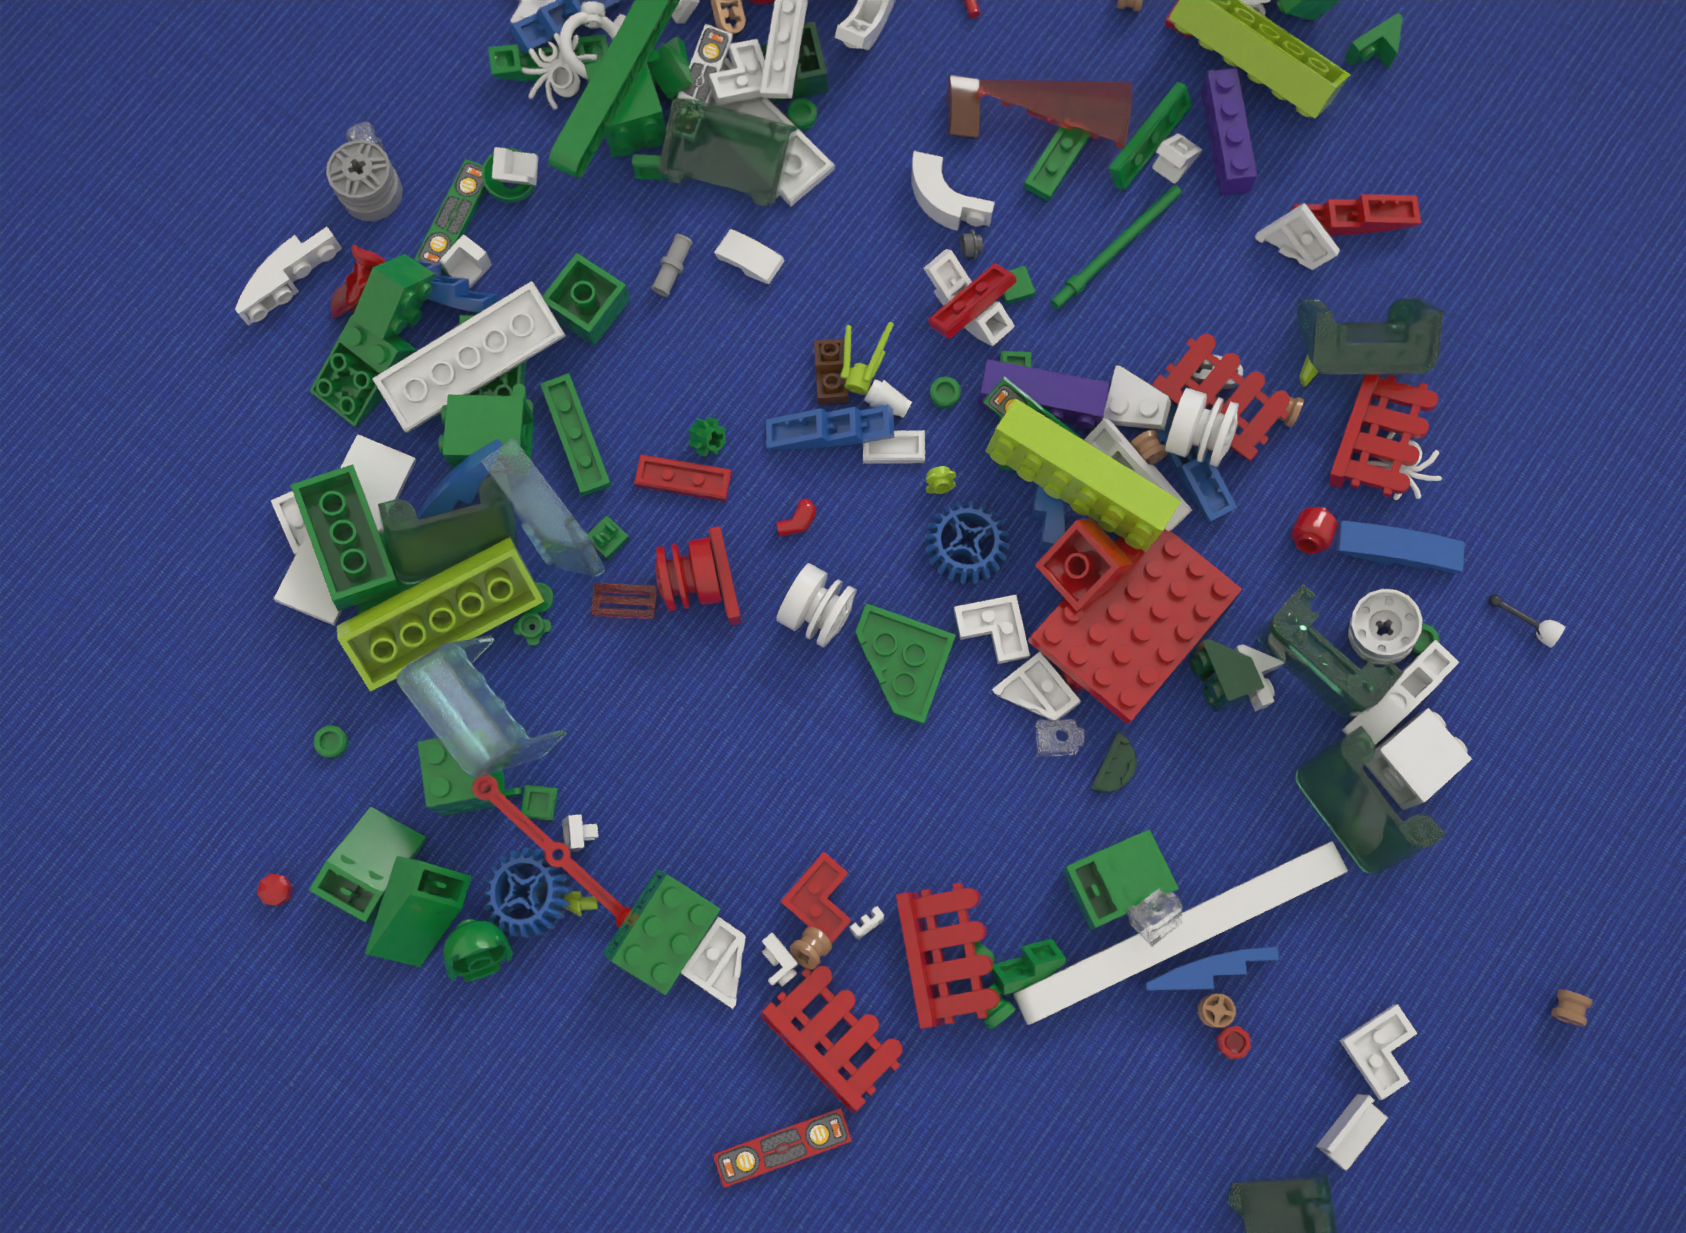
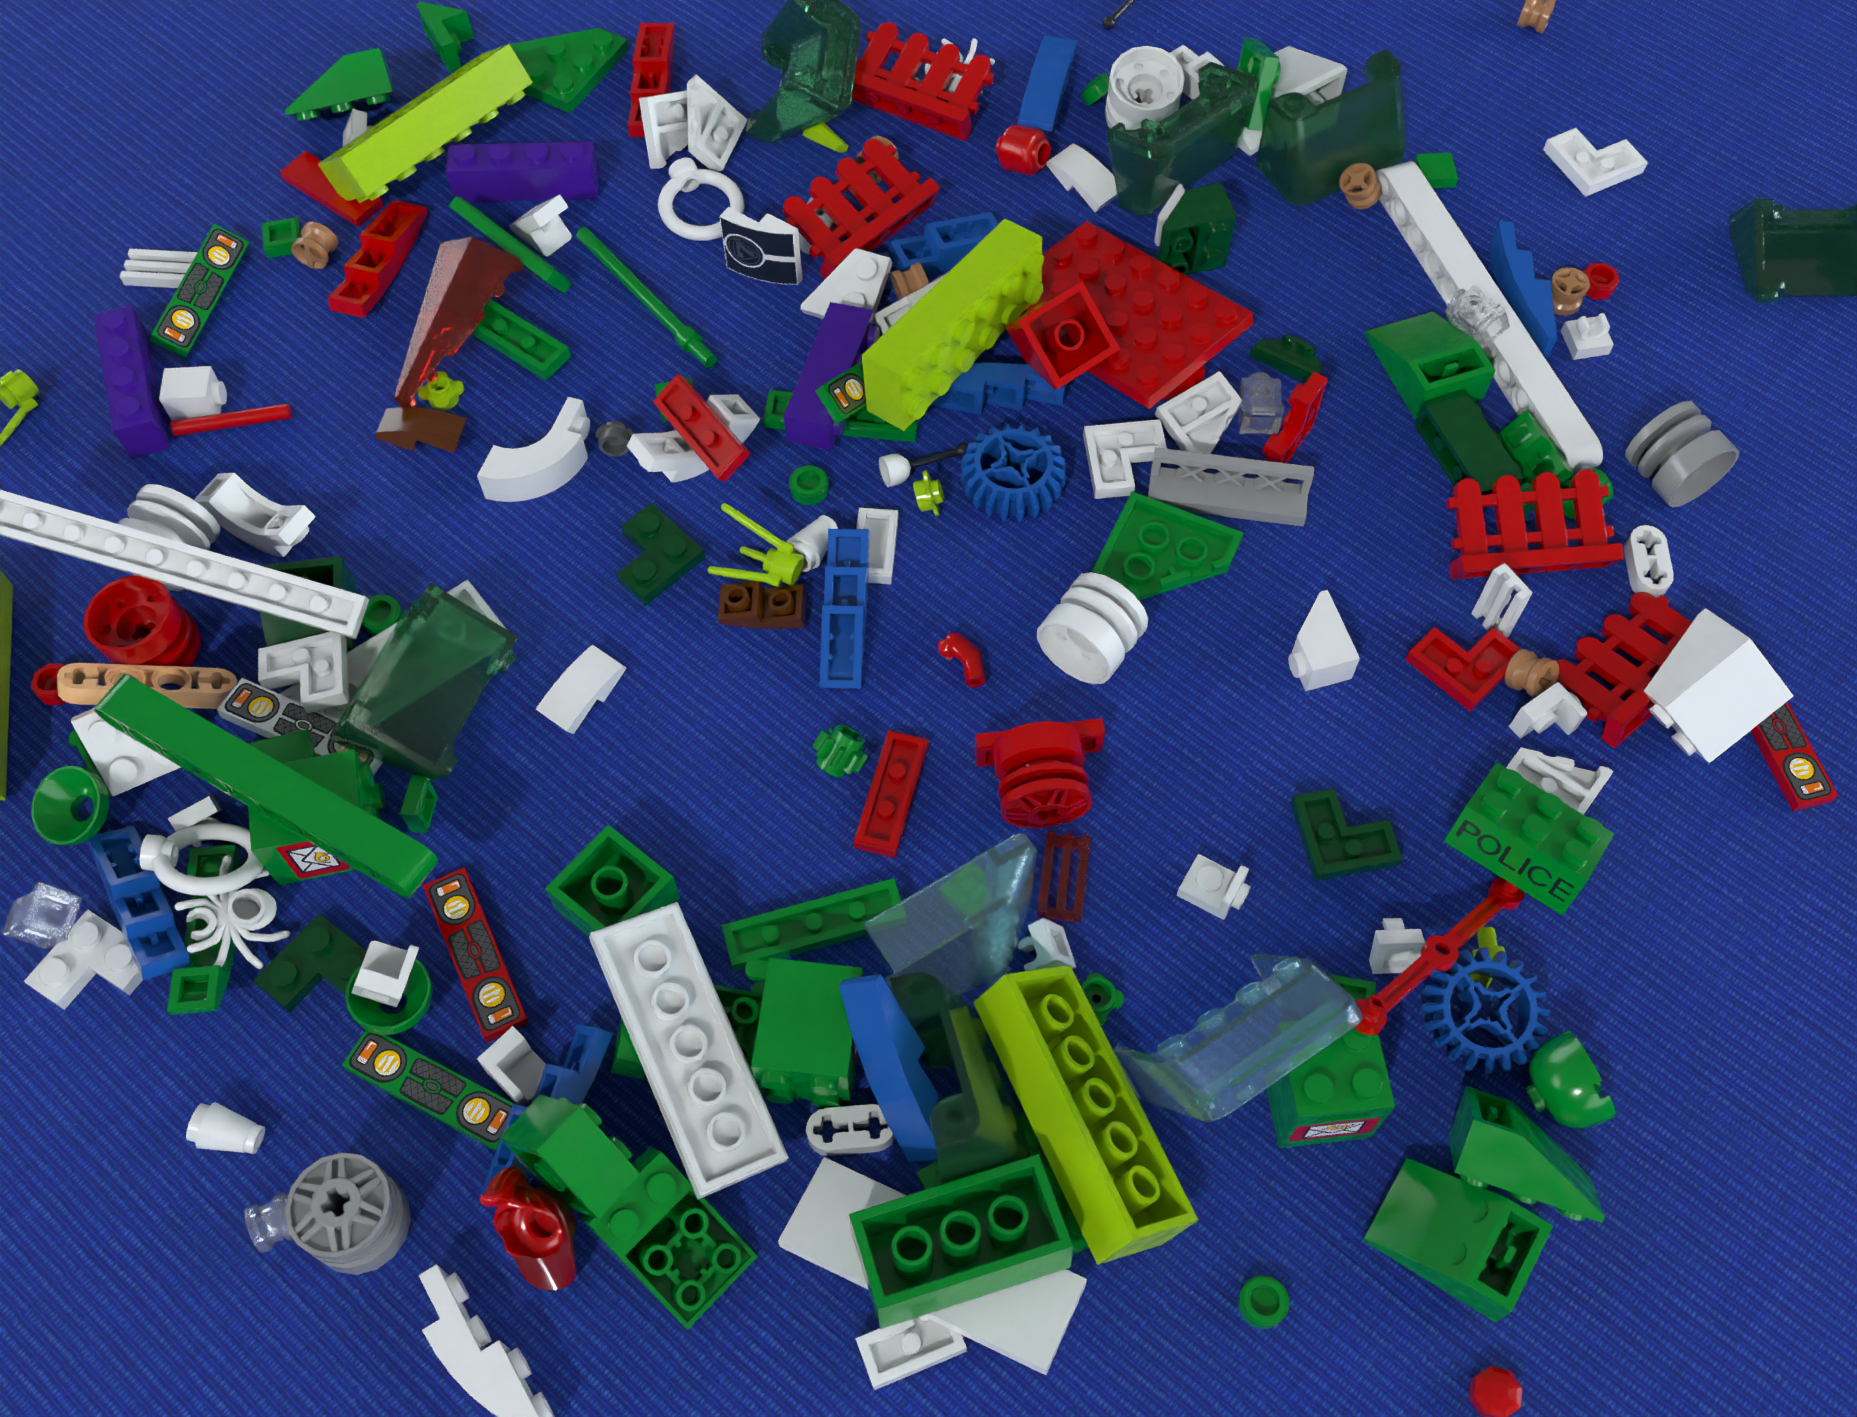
camera: 85 degrees left, 15 degrees down
(421, 100) = (224, 1130): none -> white cone
(426, 470) = (848, 1142): none -> white beam
(537, 124) = (313, 955): none -> dark green plate
(547, 224) = (475, 955): none -> tile
(565, 592) = (1050, 945): none -> white tile
(621, 706) = (1214, 887): none -> white bracket
(656, 790) = (1338, 849): none -> dark green plate
(671, 265) = (575, 785): light grey pin -> none
(797, 1086) = (1714, 688): none -> white slope
(825, 783) = (1323, 647): none -> white slope
(871, 299) = (665, 555): none -> dark green plate
(933, 1067) = (1657, 561): none -> white beam
(964, 455) = (896, 468): none -> white hinge
(967, 713) = (1228, 491): none -> light grey fence
(1002, 122) = (442, 392): none -> lime plate
(1028, 911) = (1464, 442): none -> dark green brick
(1031, 1088) = (1681, 454): none -> light grey wheel
(1039, 765) = (1298, 421): none -> red plate
(1127, 45) = (378, 261): none -> red slope
(1162, 324) = (761, 249): none -> black slope
(1169, 1027) = (1587, 337): none -> white tile
(1202, 427) = (906, 208): white wheel -> none
(1246, 260) = (687, 177): none -> white piece
(1300, 270) = (711, 125): none -> white wing
(1303, 571) = (1086, 174): none -> white slope
(1312, 818) = (1360, 176): none -> medium nougat wheel
(1351, 900) = (1438, 169): none -> green tile
(1352, 1131) = (1678, 195): white panel -> none
(1362, 141) = (569, 64): none -> green plate
(1396, 583) = (1095, 89): none -> green tile
(1398, 721) = (1265, 67): none -> green plate

